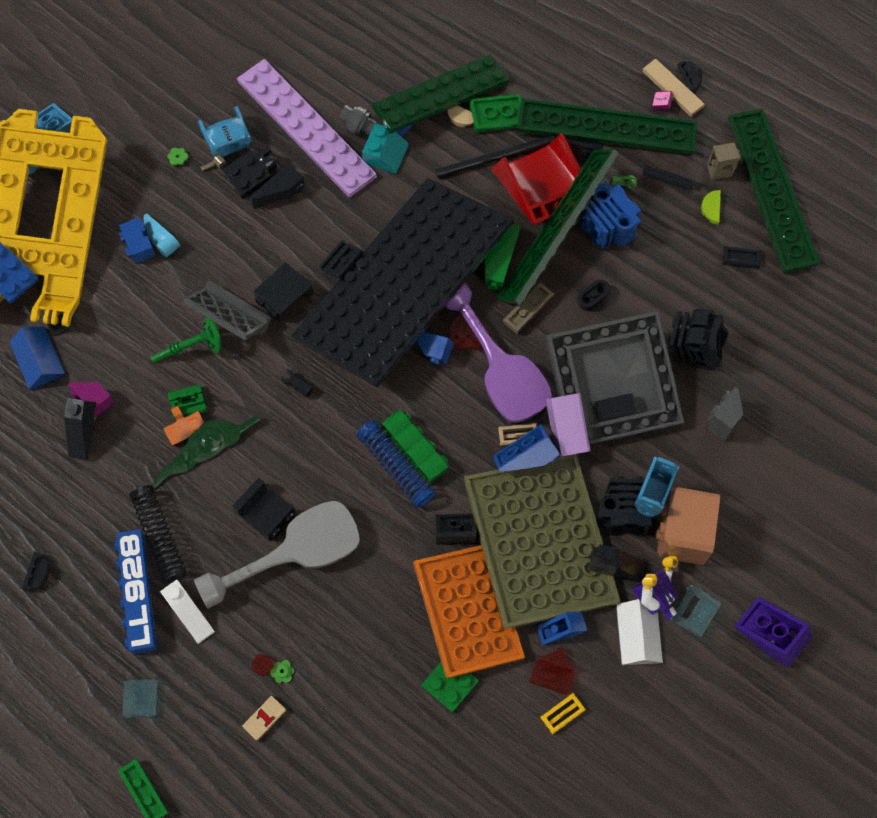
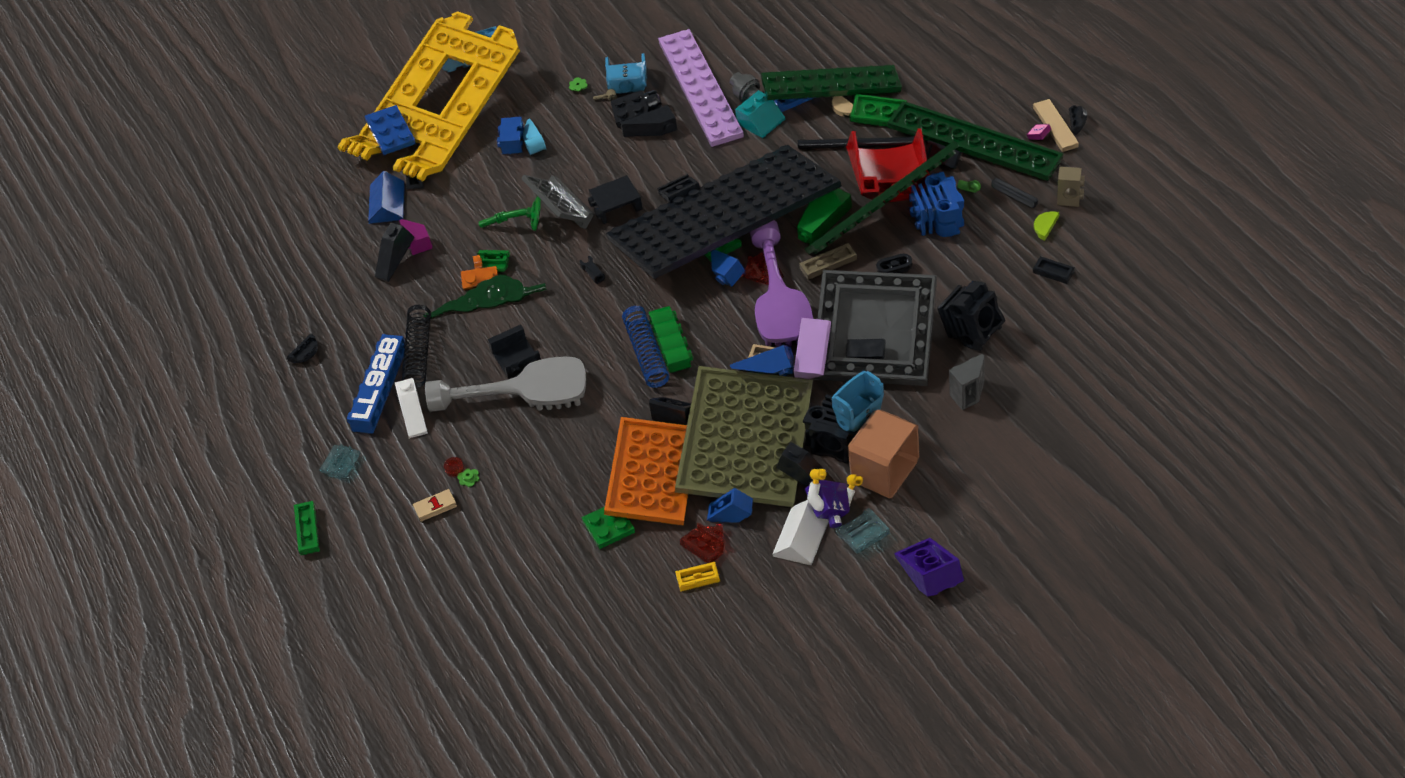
camera: 30 degrees right, 20 degrees down
(773, 191) = (1111, 224): dark green plate -> none

